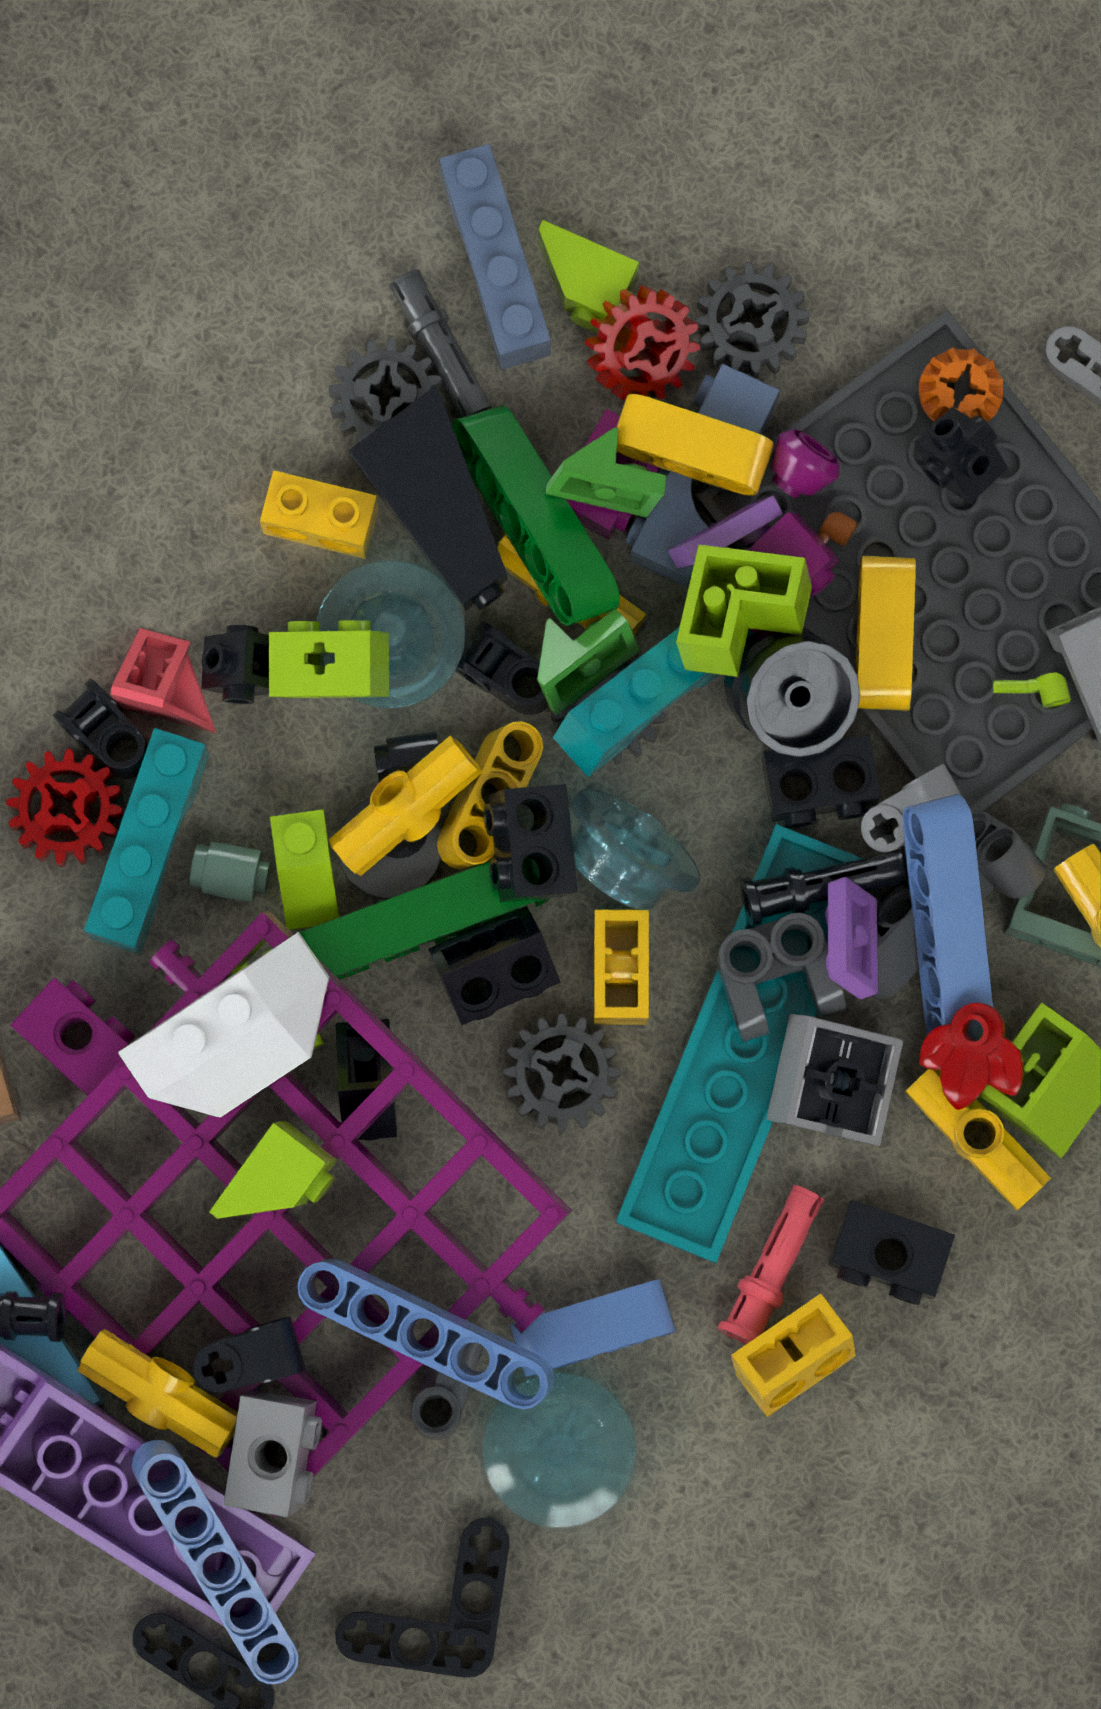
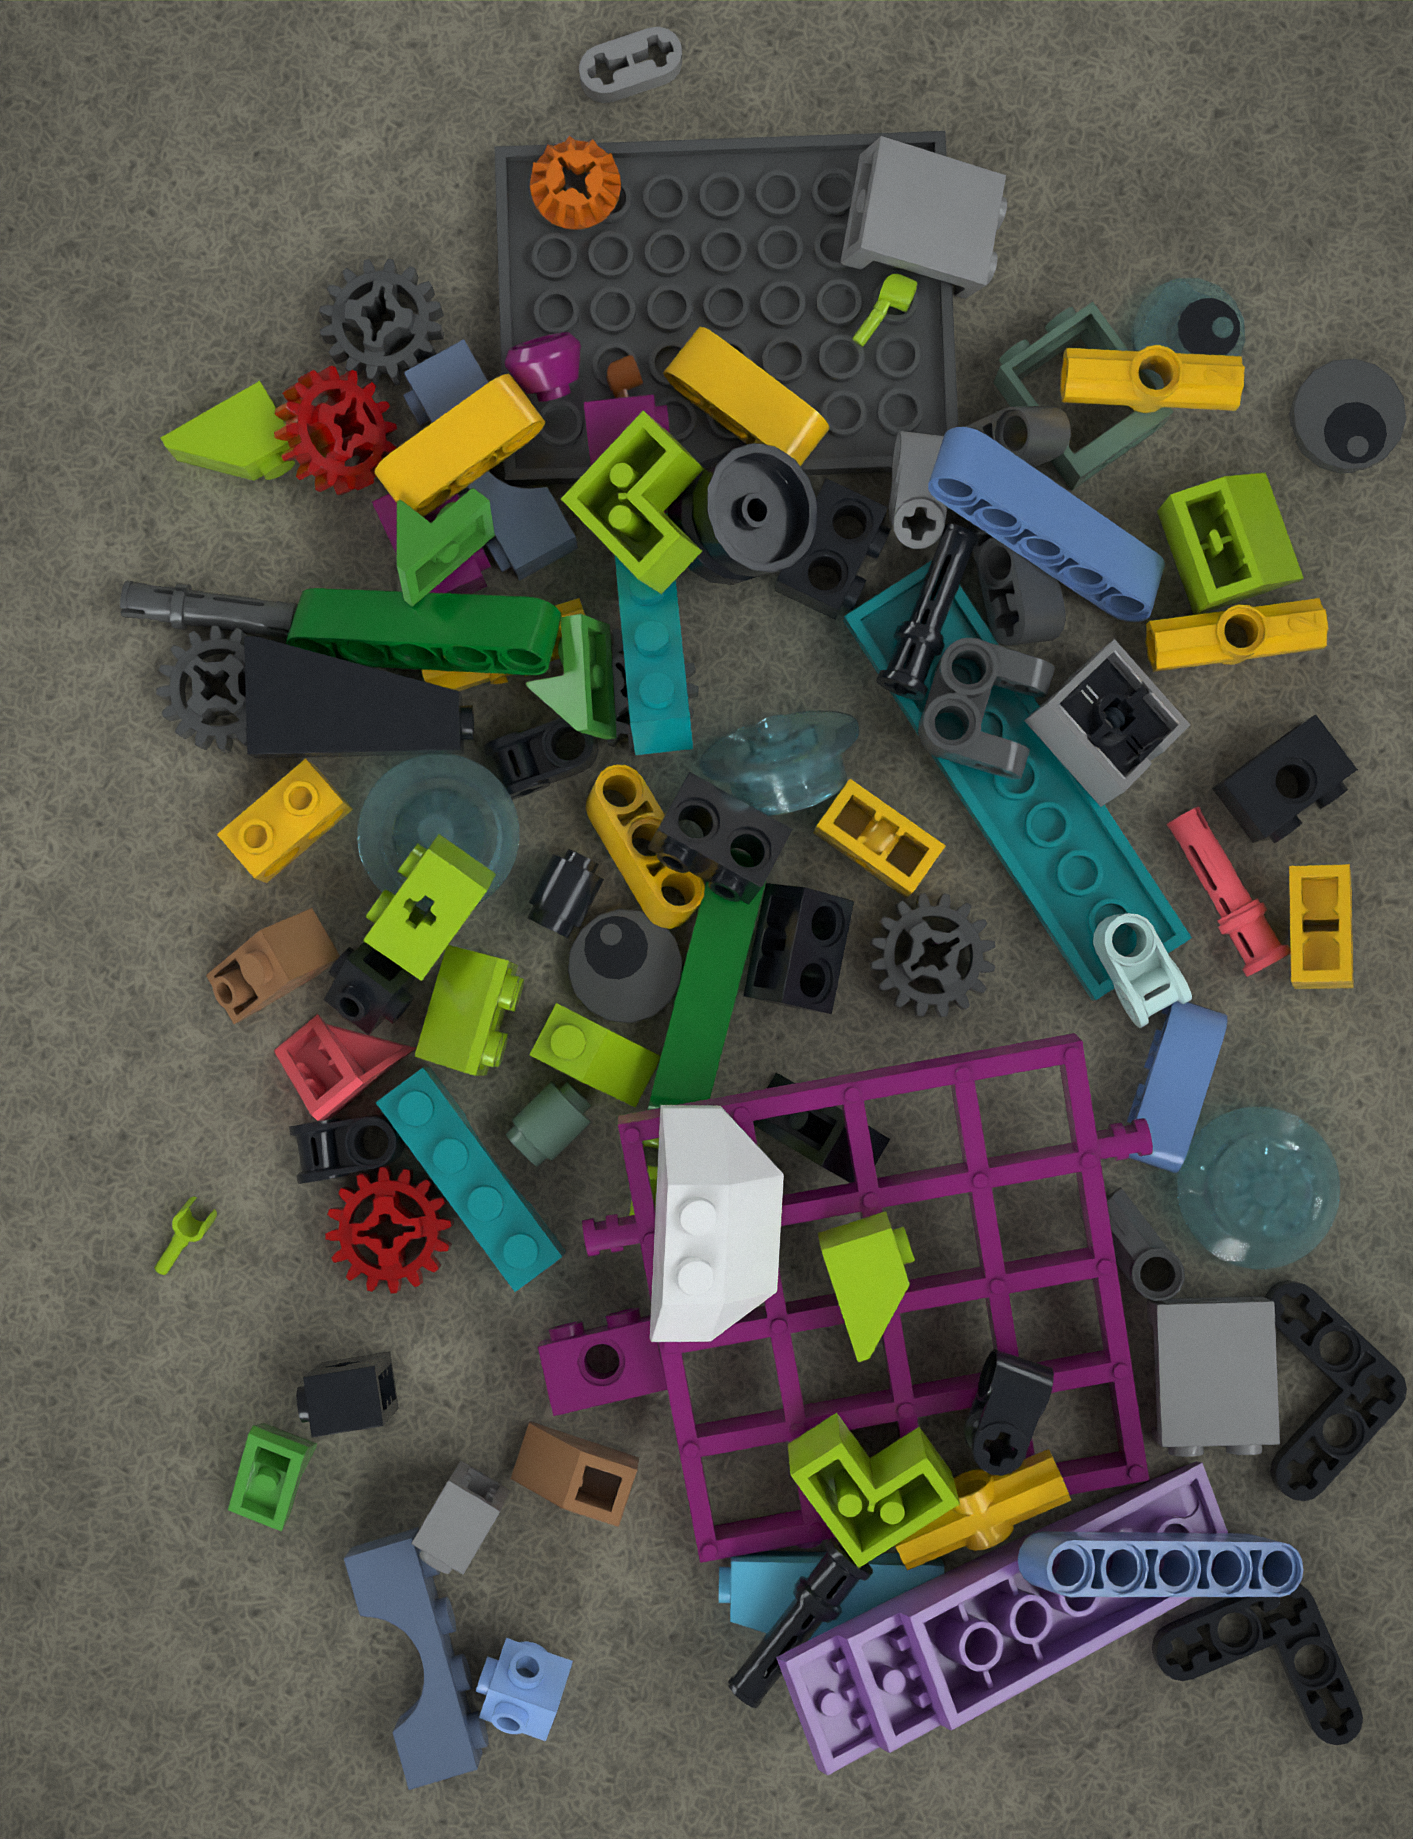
camera: 55 degrees left, 5 degrees up
(109, 1294) = (872, 1499): none -> lime brick
(204, 581) = (272, 965): none -> medium nougat slope
(254, 1481) = (1117, 1478): light grey brick -> none
(272, 752) = (468, 1011): none -> lime slope
(388, 1512) = (1215, 1374): none -> light grey panel
(398, 1333) = (1129, 1241): medium blue beam -> none
(405, 806) = (604, 928): yellow piece -> none
(495, 256) = (162, 501): sand blue arch -> none
(659, 1237) = (1141, 970): none -> light aqua piece
(744, 525) = (563, 455): medium lavender plate -> none
(852, 938) = (1002, 617): medium lavender plate -> none
(952, 448) = (636, 219): black brick -> none
(970, 1063) = (1181, 595): red plate -> none

